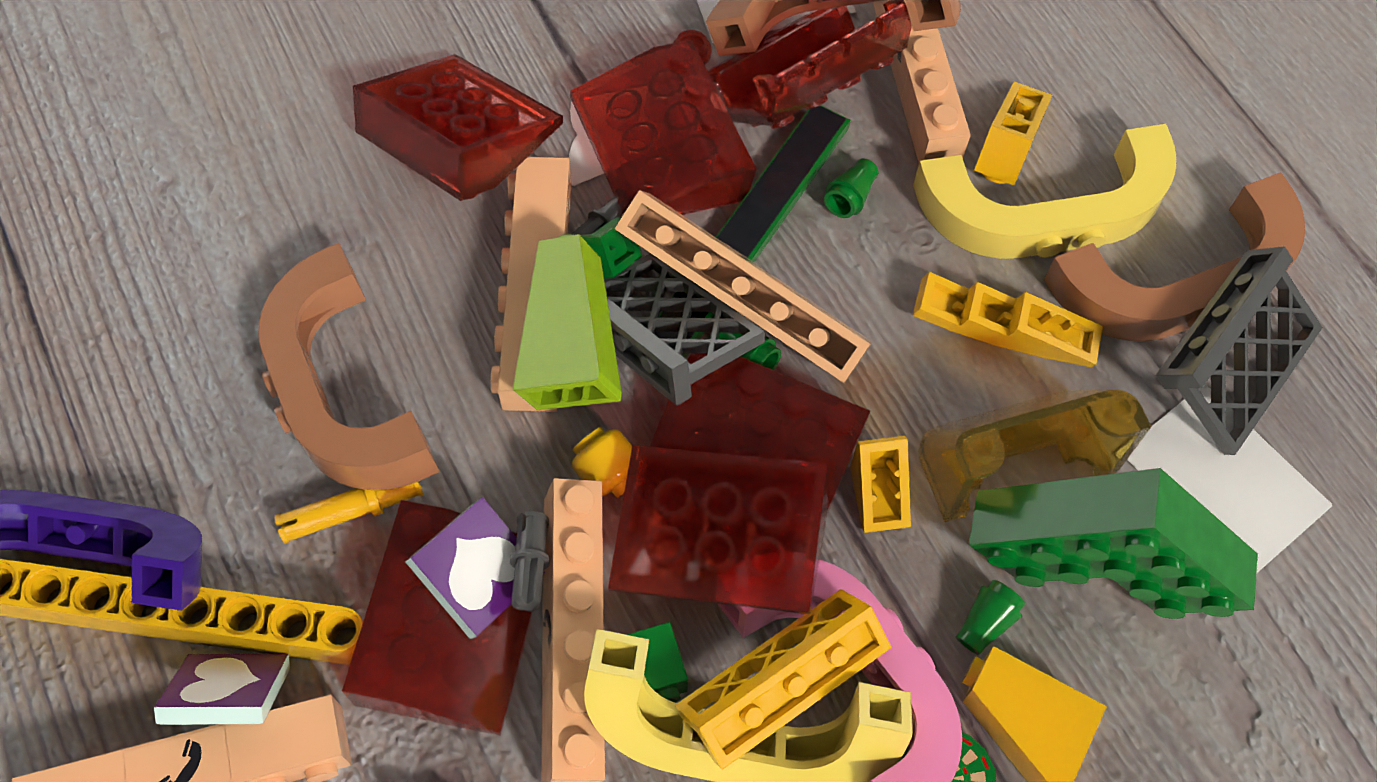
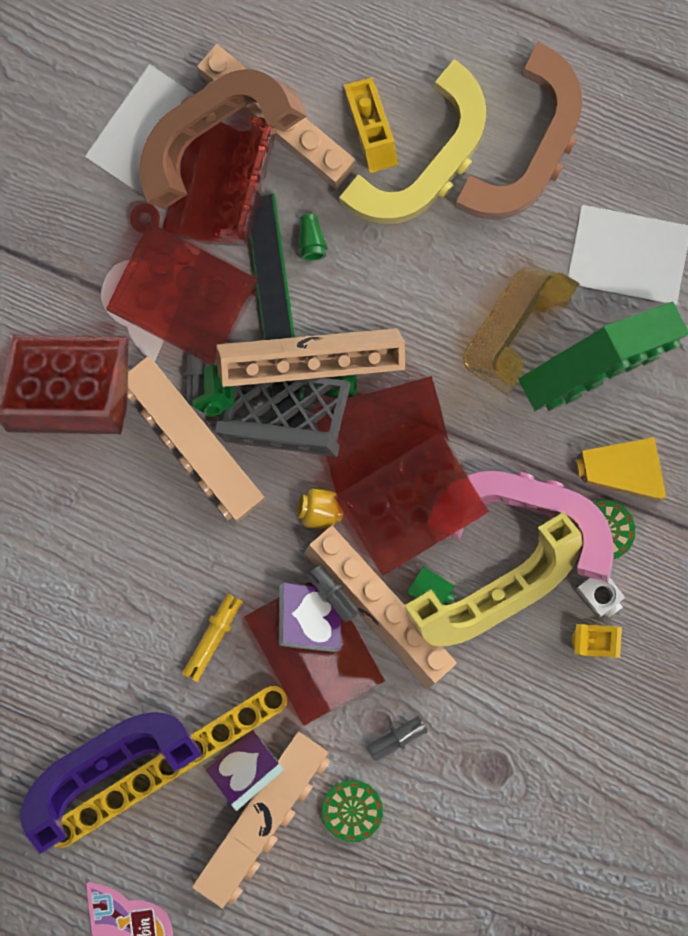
camera: 35 degrees left, 20 degrees up
(296, 308) = (83, 560): nougat arch -> none
(567, 330) = (247, 461): lime slope -> none
(786, 677) = (504, 550): yellow fence -> none
(882, 483) = (466, 407): yellow slope -> none
(990, 616) = (568, 432): green cone -> none
(1007, 322) = (456, 254): yellow slope -> none
(1225, 323) = (573, 176): dark grey fence -> none

